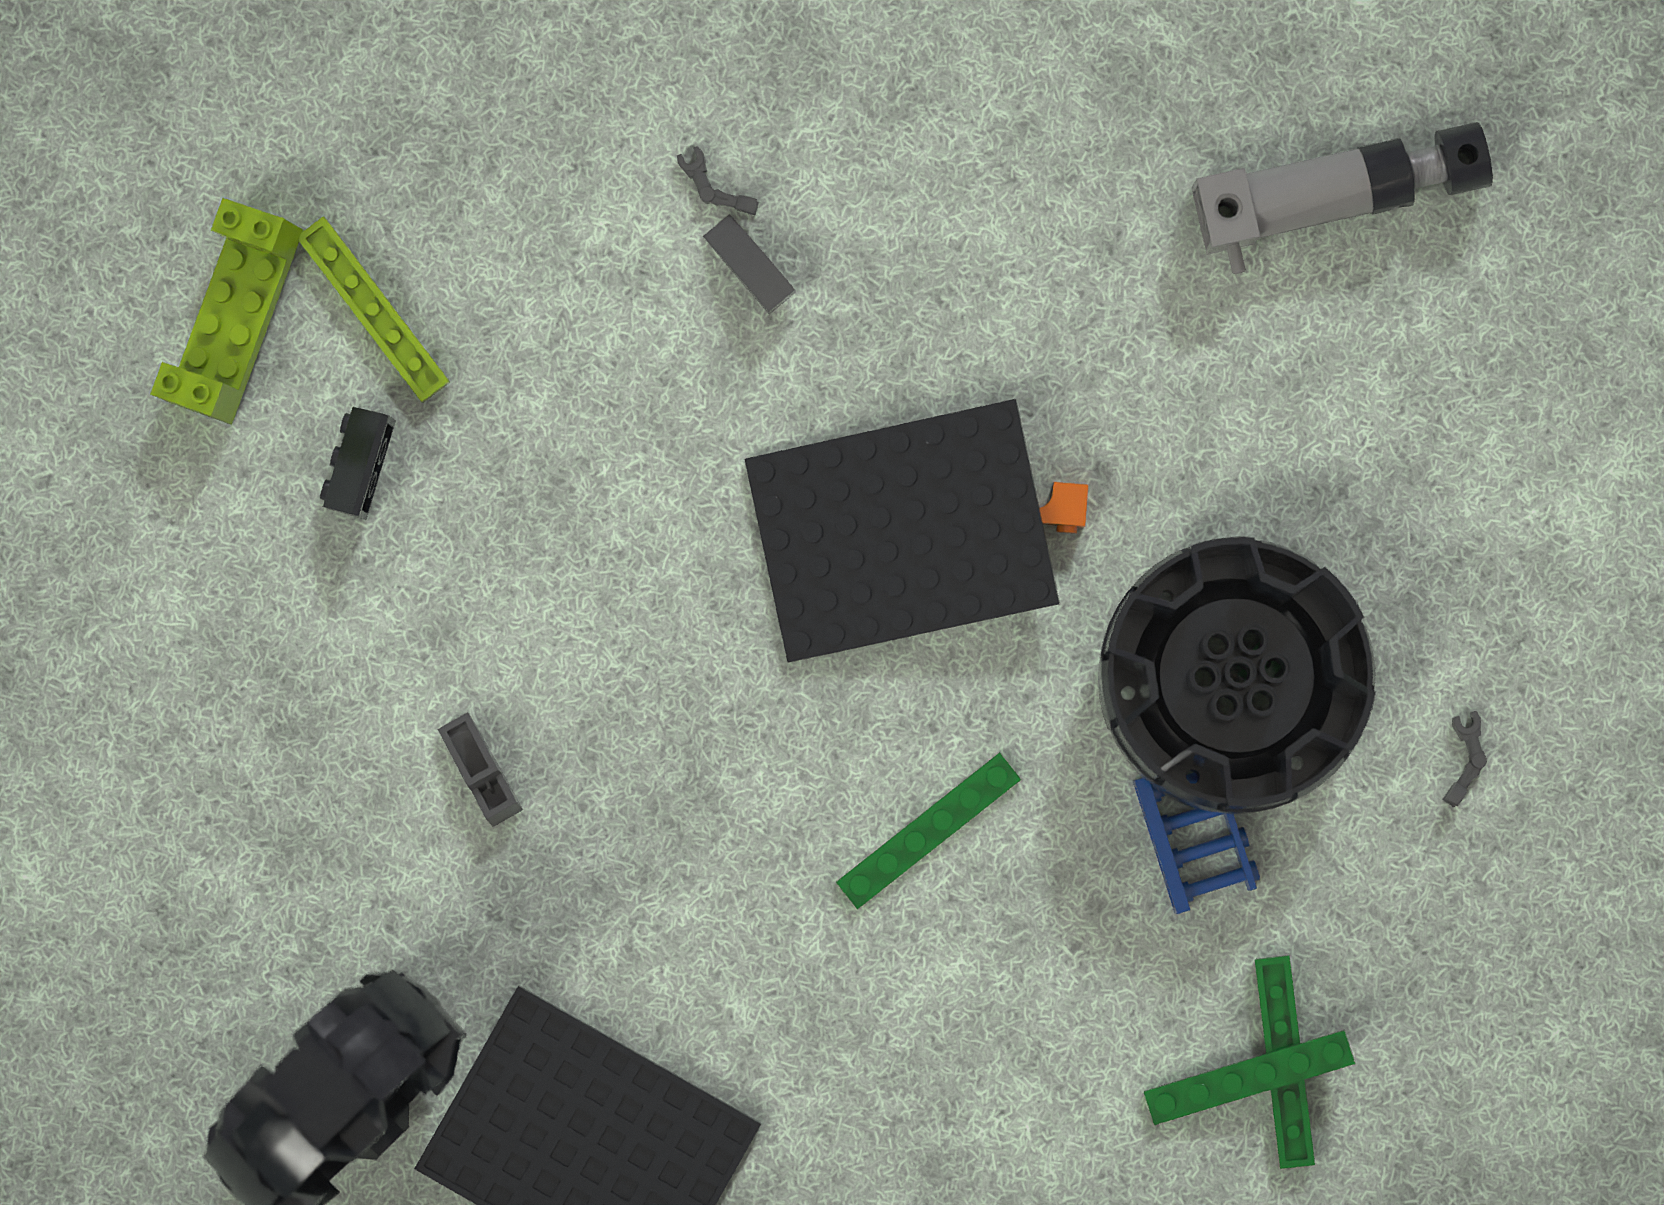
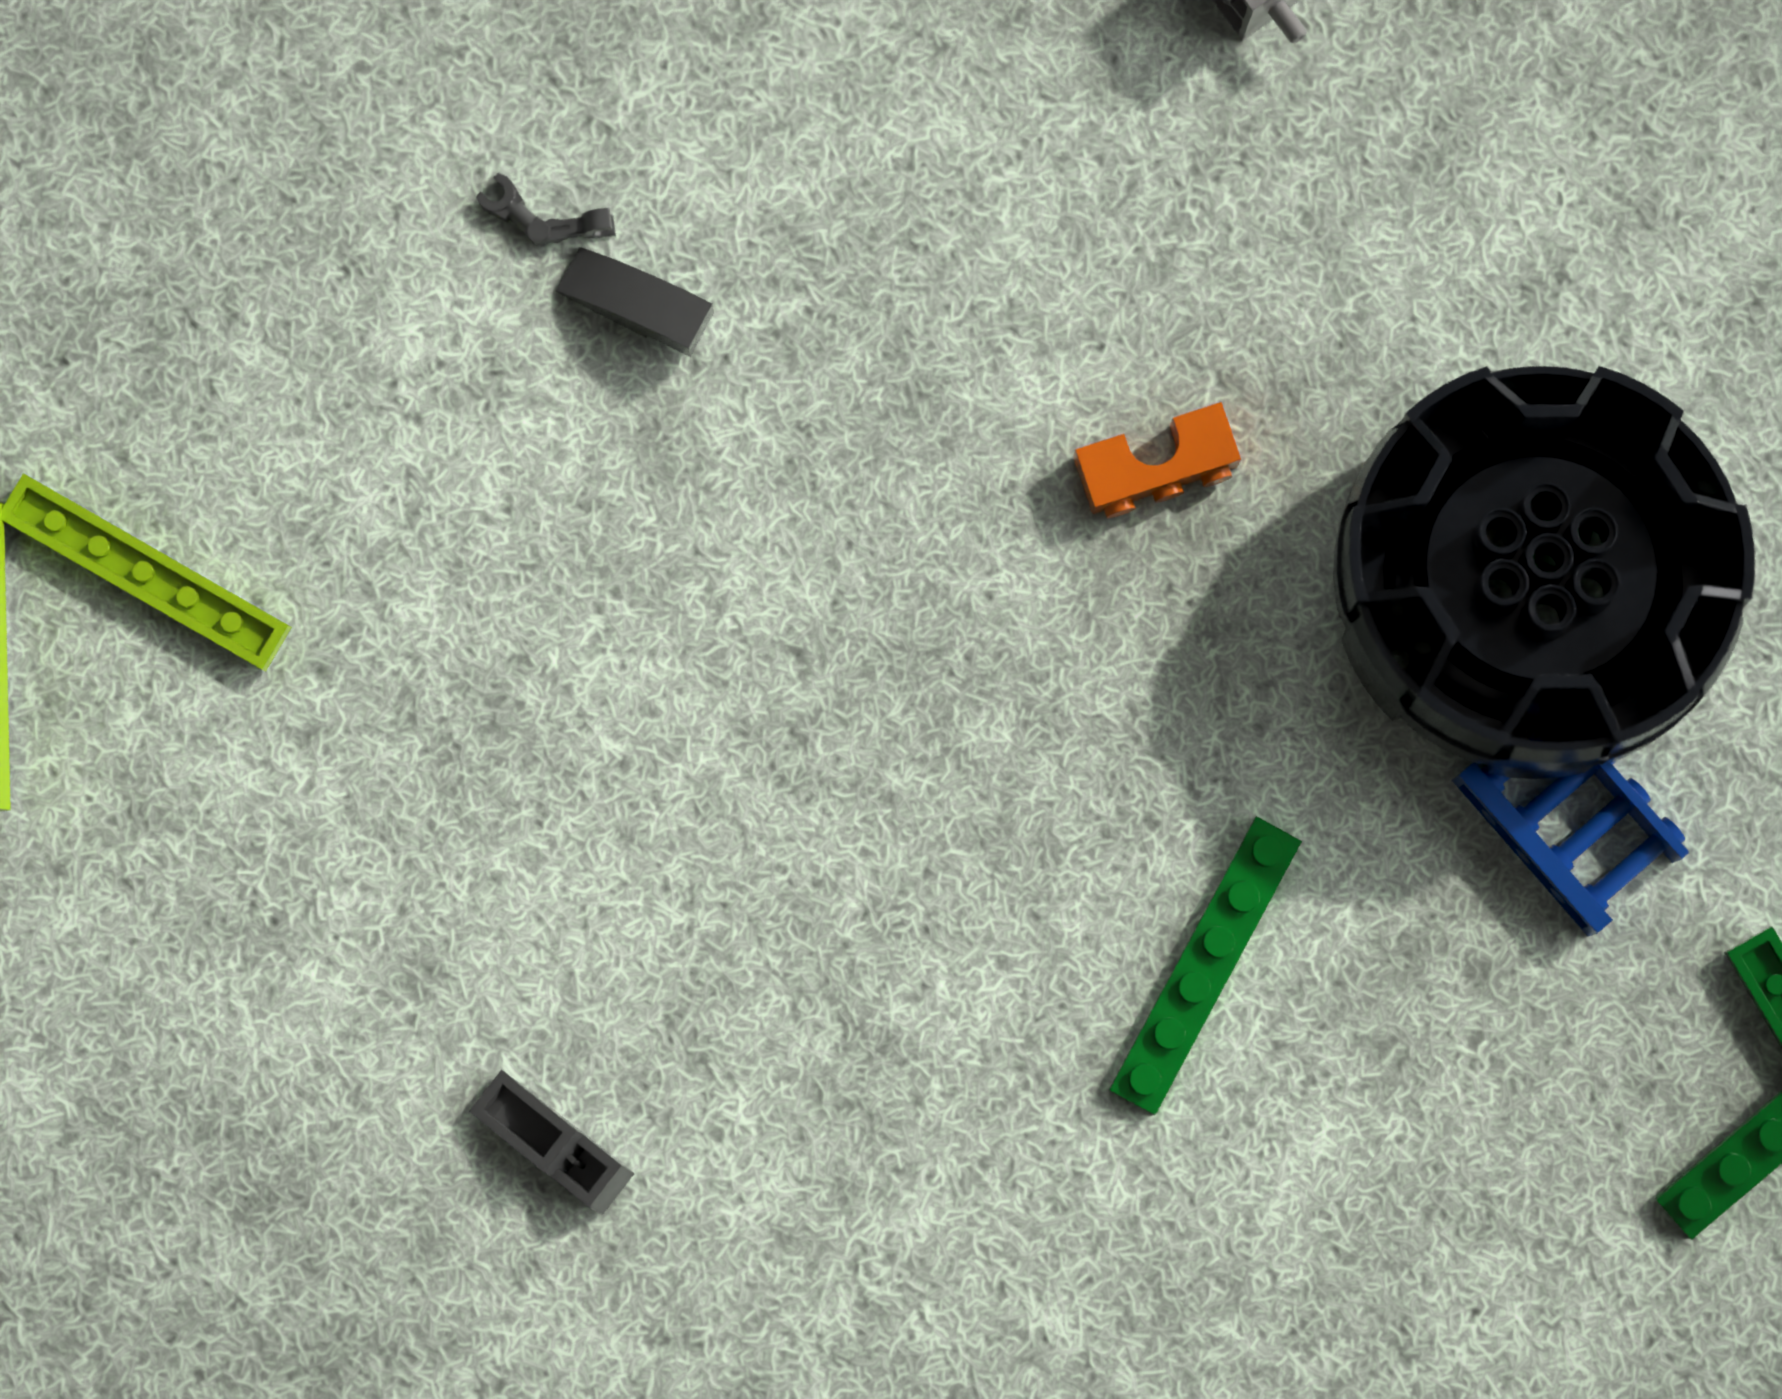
camera: 35 degrees left, 5 degrees down
(357, 462) = (207, 787): black slope -> none
(902, 531) = (995, 571): black plate -> none

